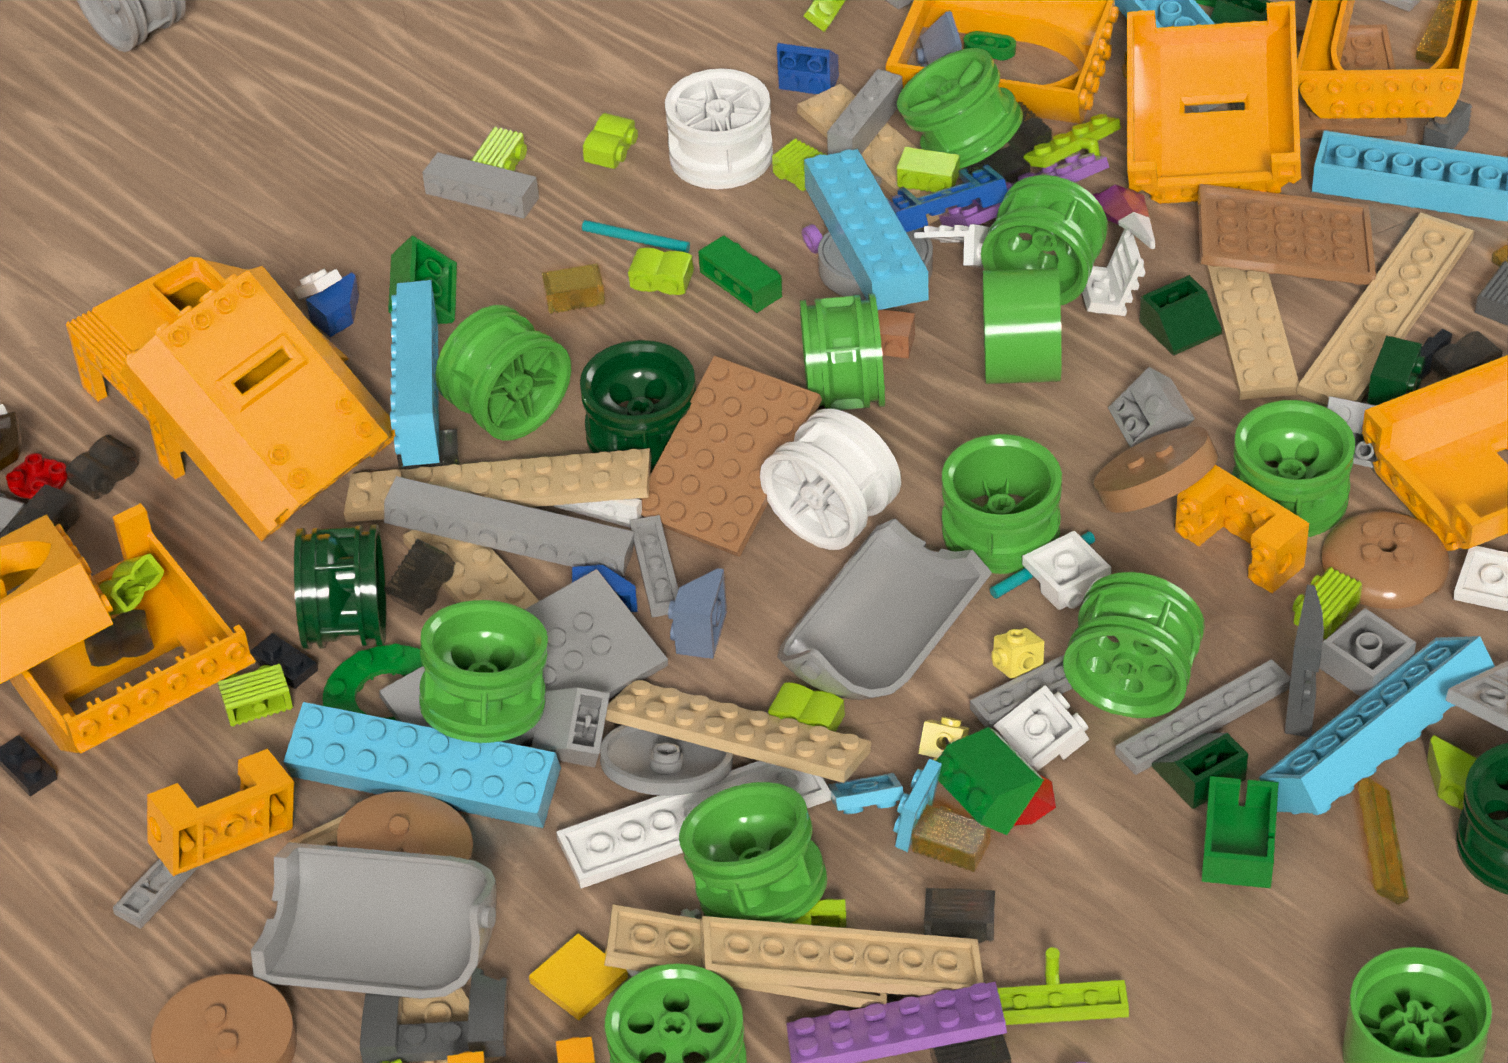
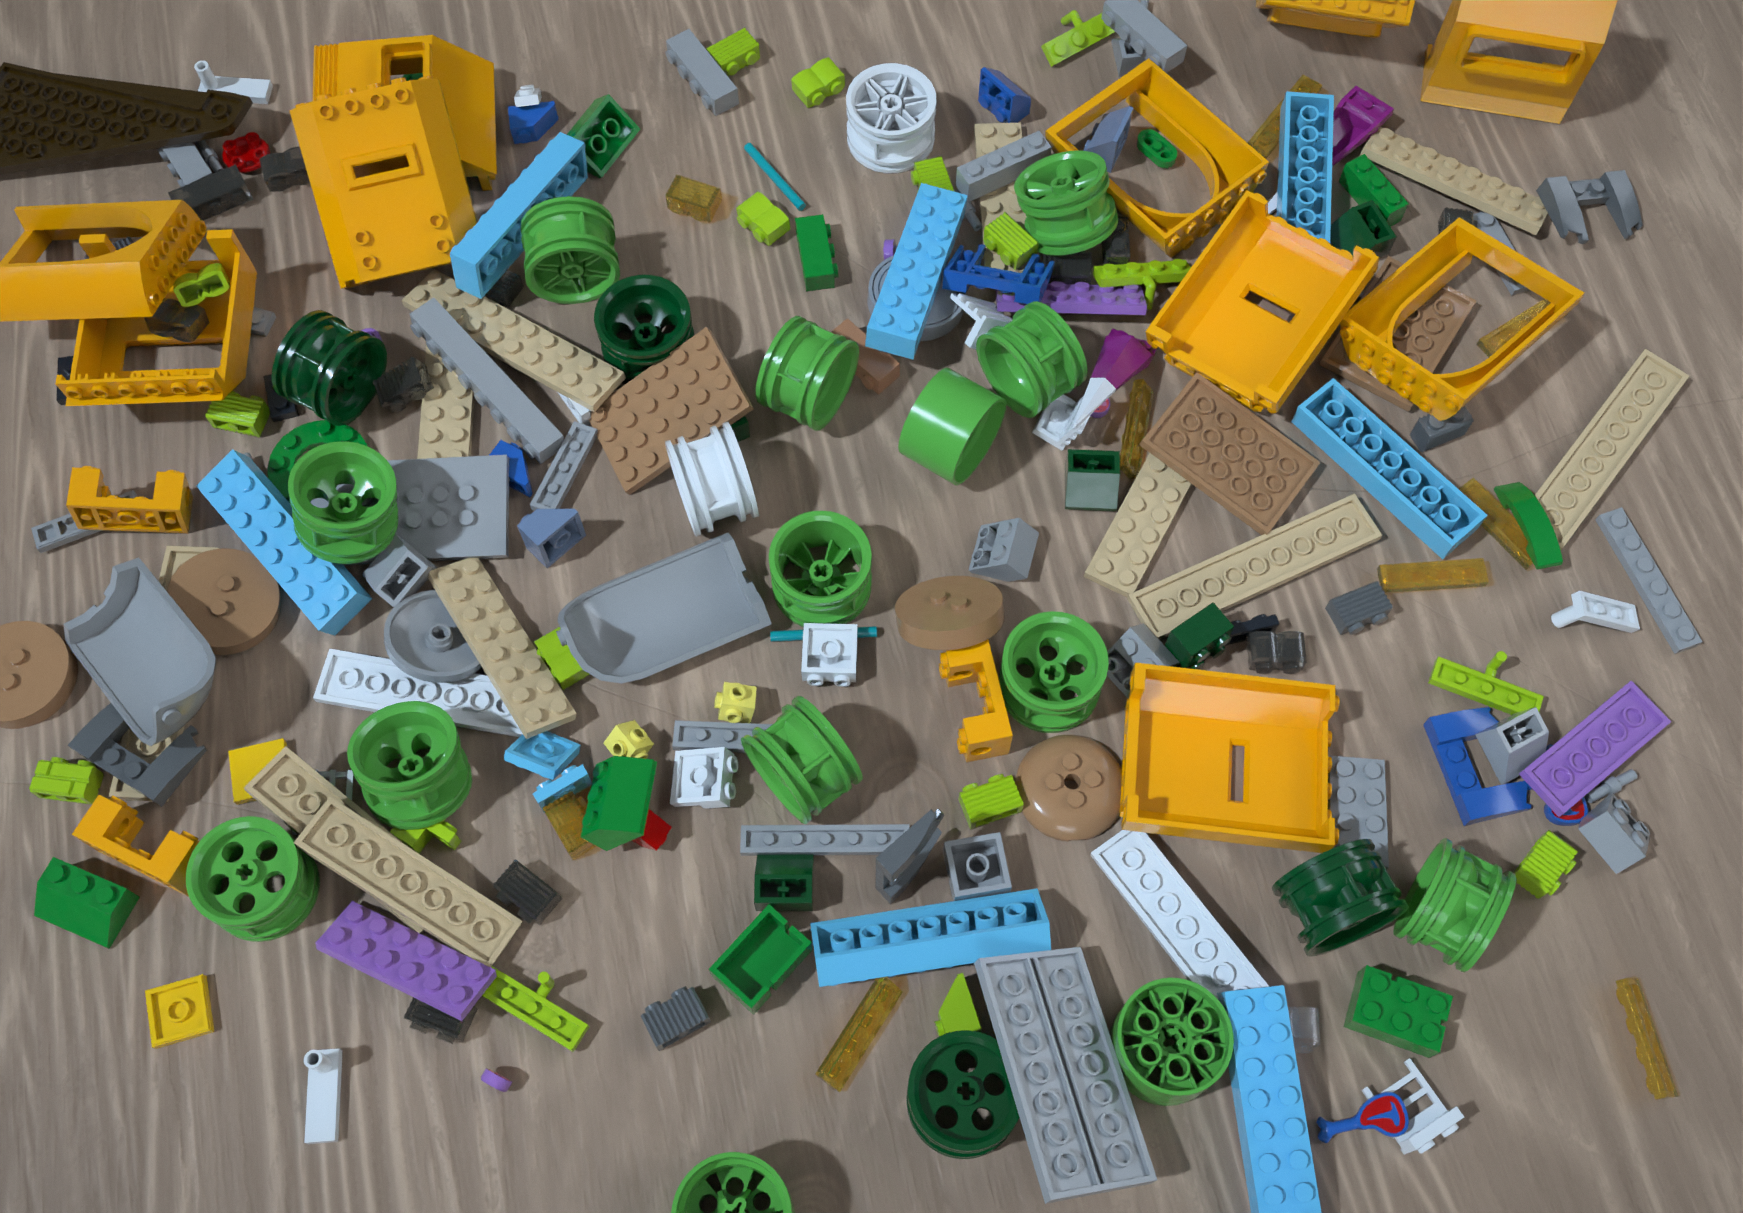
camera: 30 degrees right, 20 degrees up
(1175, 255) = (1135, 428): none -> clear yellow plate
(1202, 928) = (675, 1017): none -> dark grey brick

